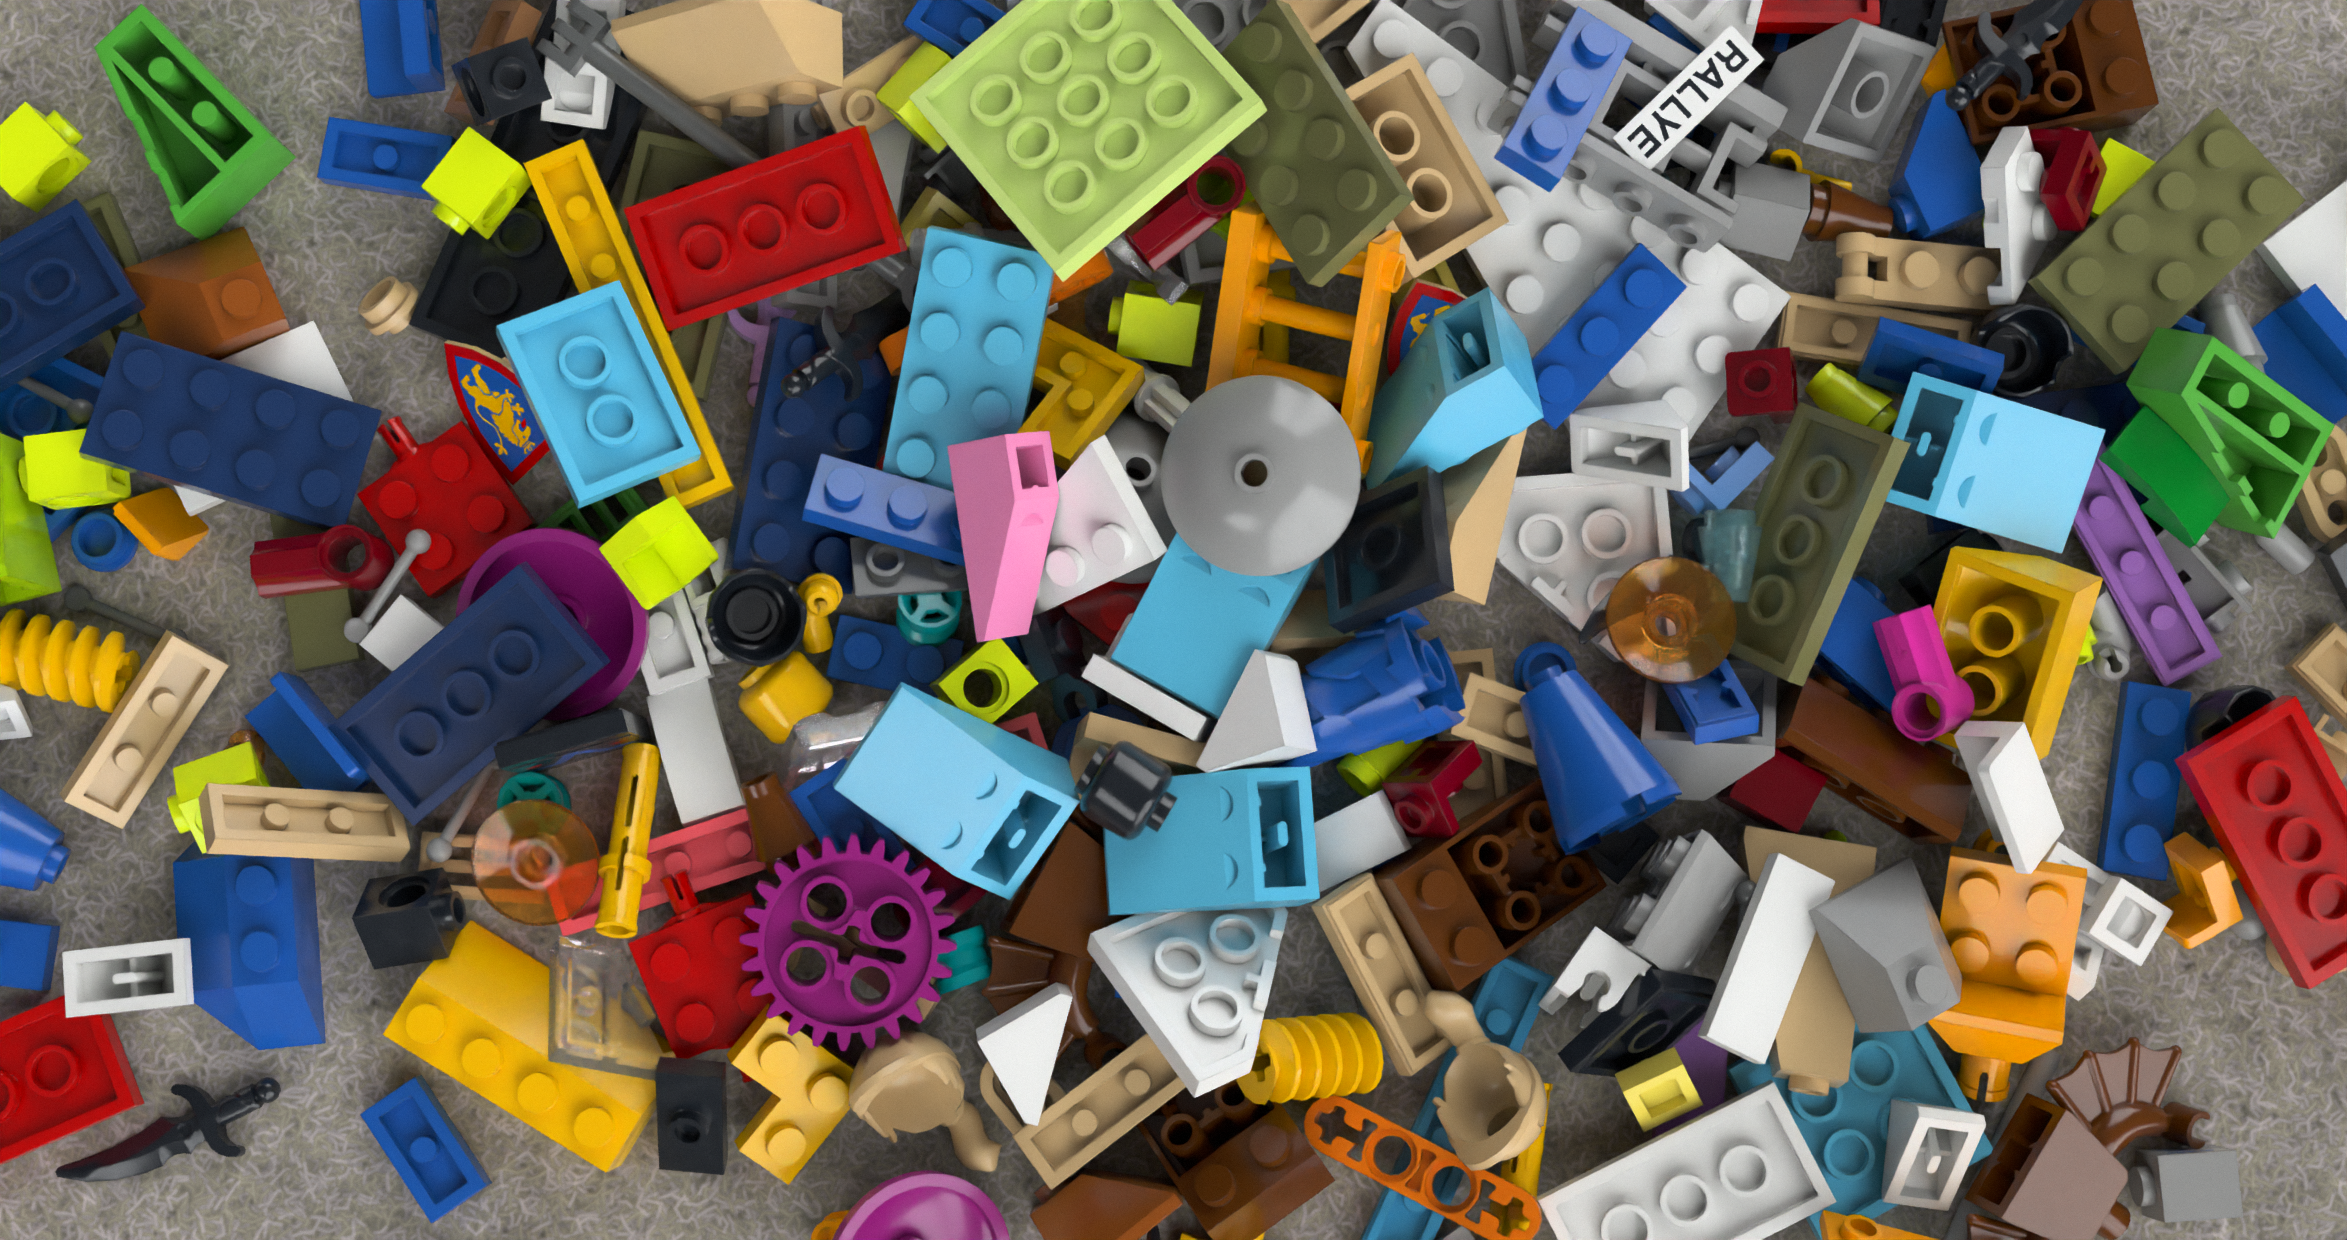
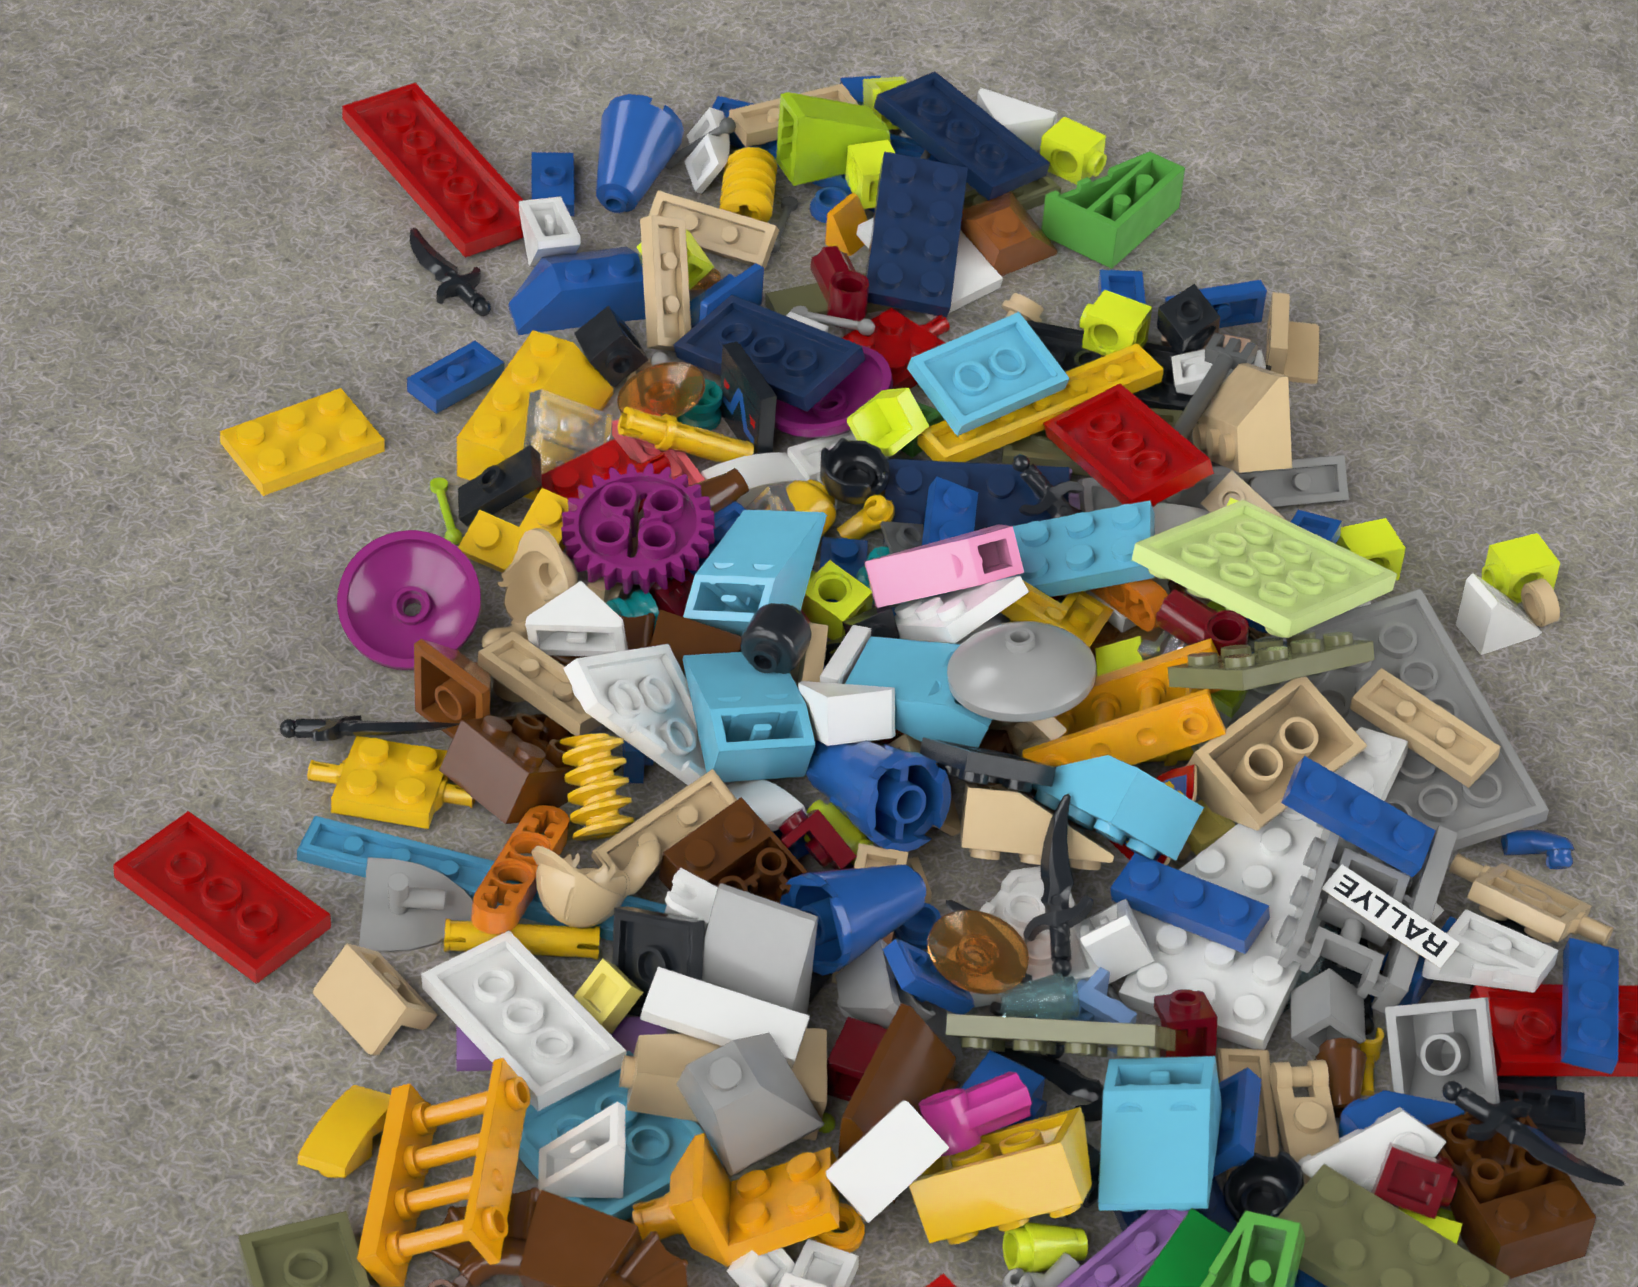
camera: 80 degrees right, 40 degrees down
(644, 1192) = (440, 486): none -> lime hinge
(1573, 499) = (1058, 882): none -> black piece

